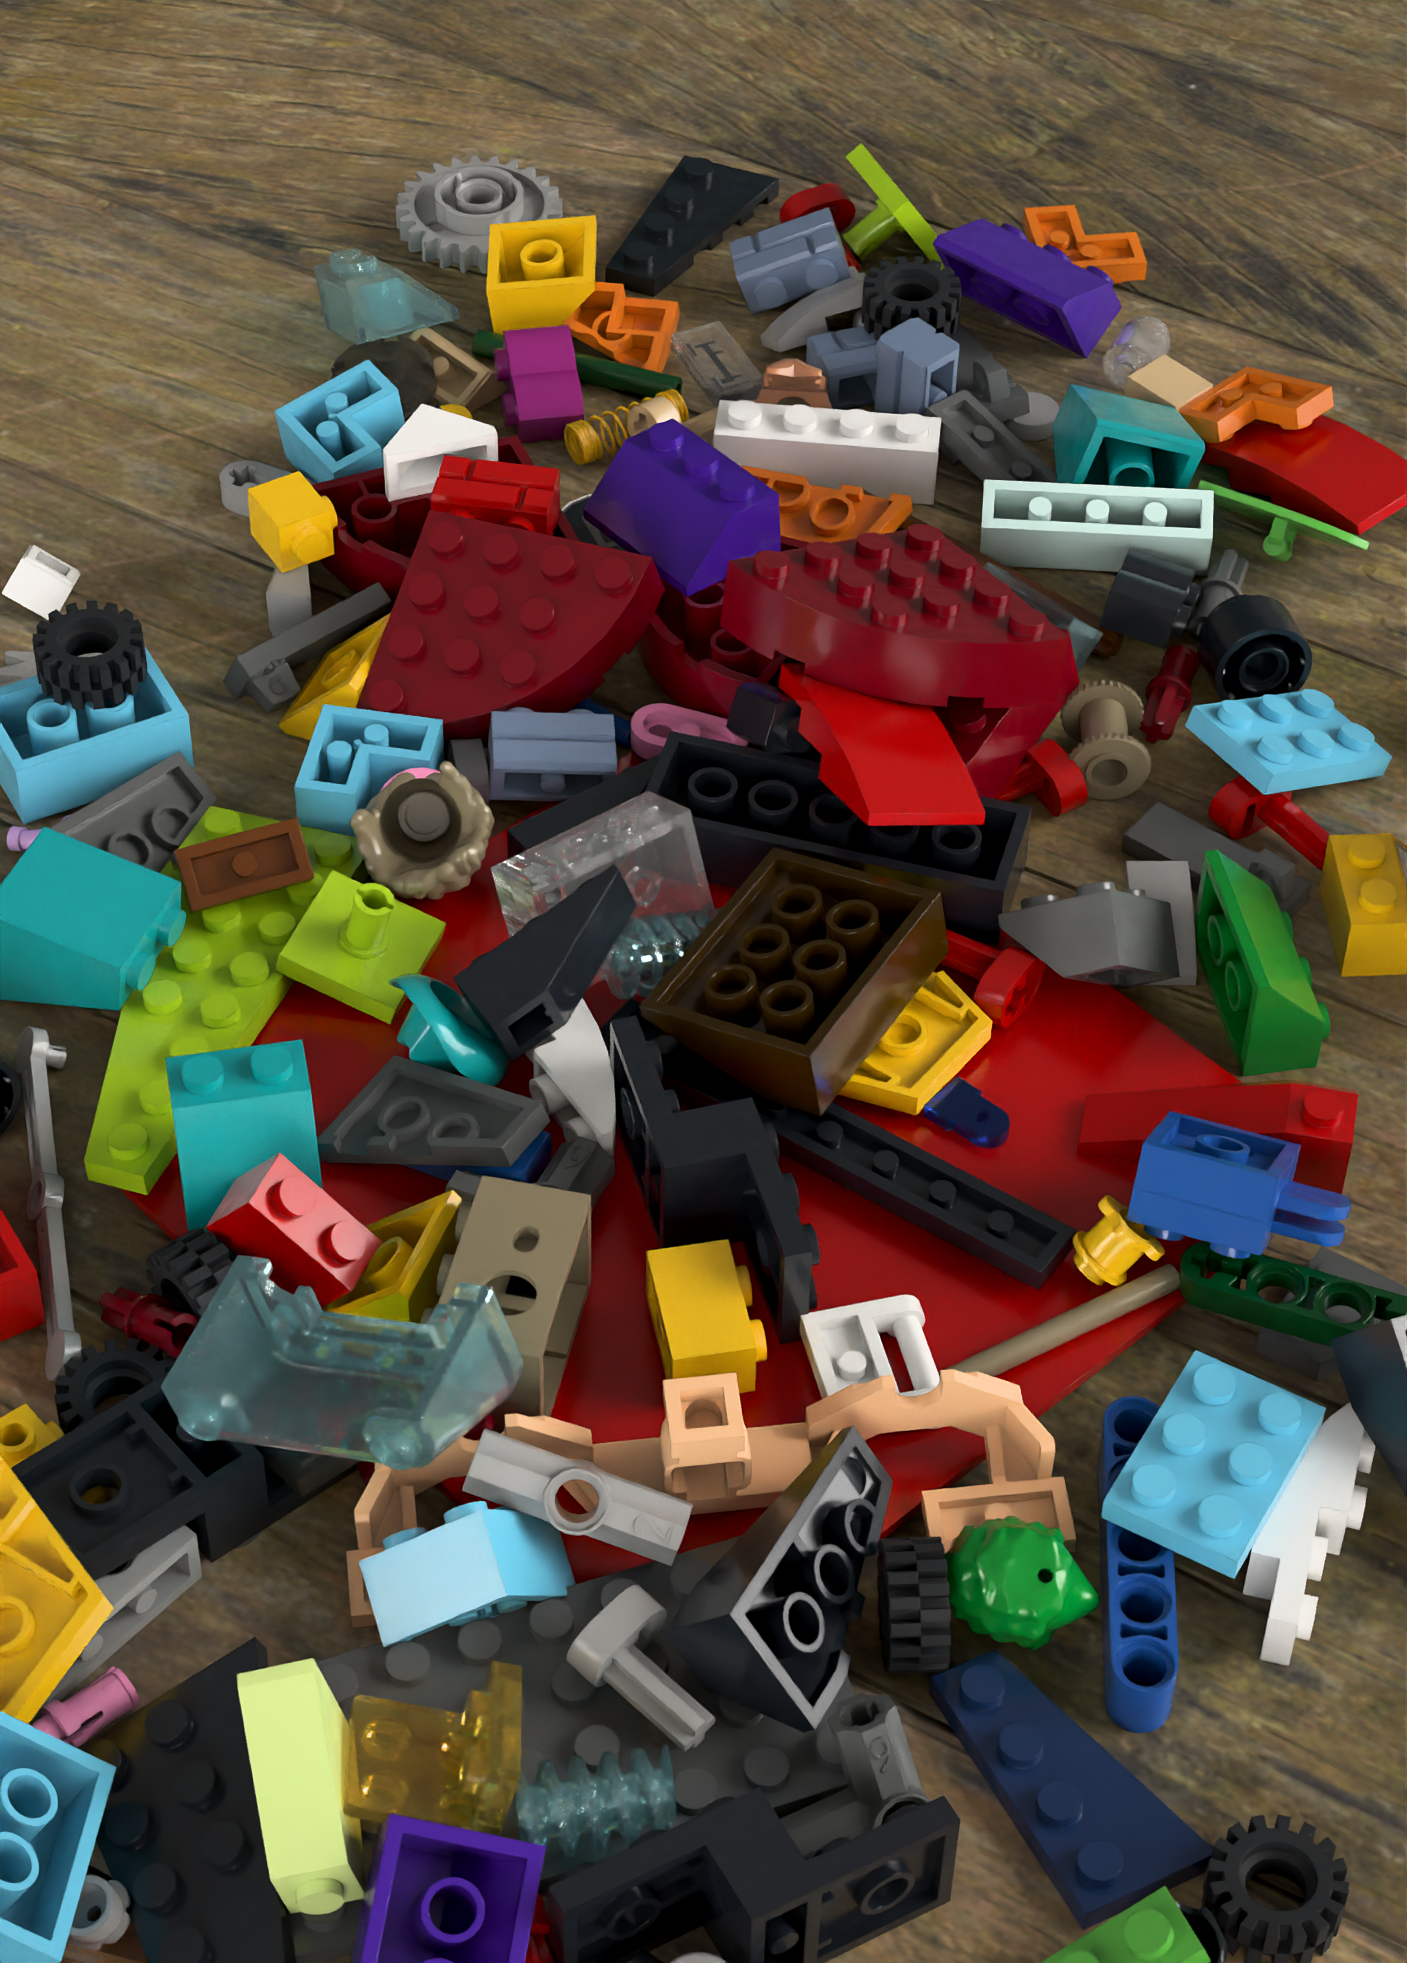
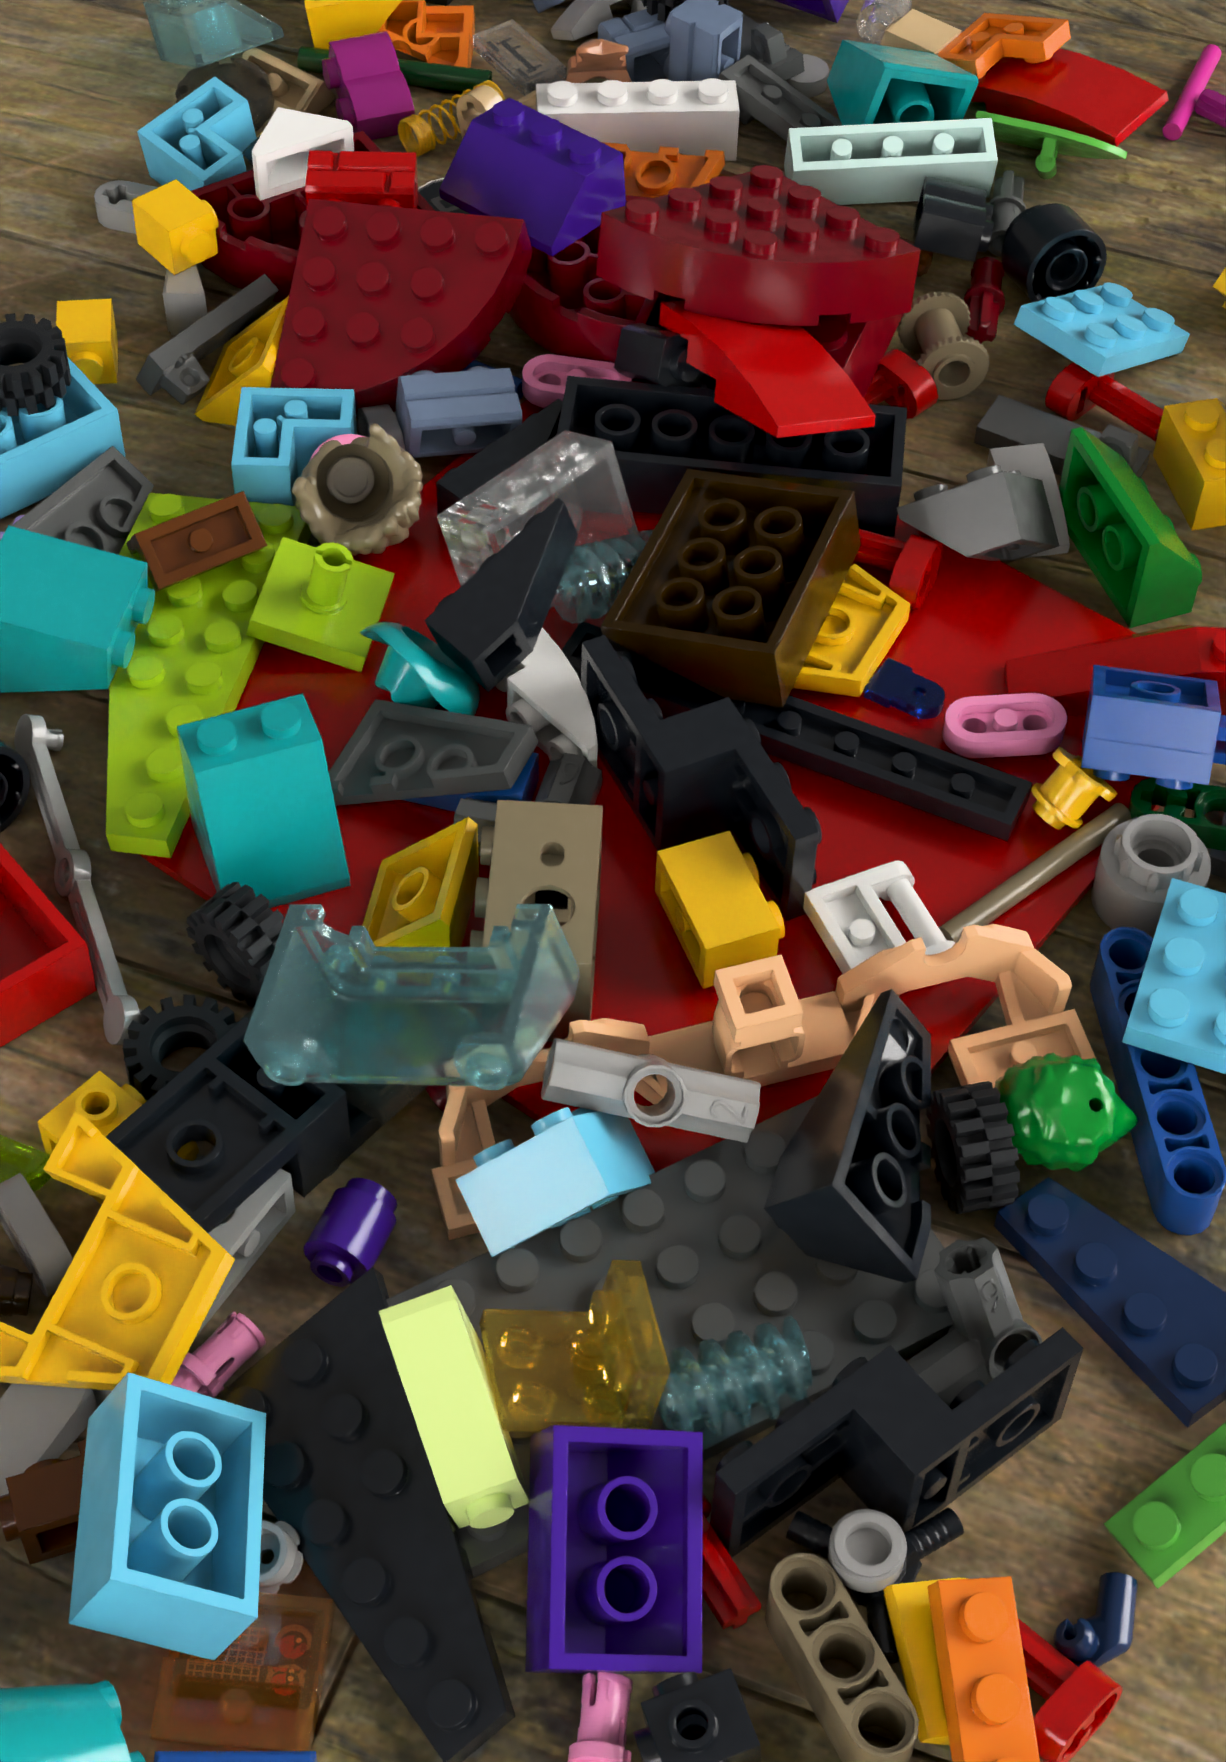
camera: 10 degrees left, 5 degrees up
(148, 1319) = (200, 975): dark red axle -> none
(179, 632) = (90, 337): none -> yellow brick
(250, 1601) = (351, 1232): none -> dark purple brick
(296, 1226) = (318, 862): red brick -> none
(612, 1654) = (712, 1235): light grey piece -> none
(1064, 1165) = (1004, 725): none -> bright pink plate
(1175, 1323) = (1139, 866): none -> light grey piece

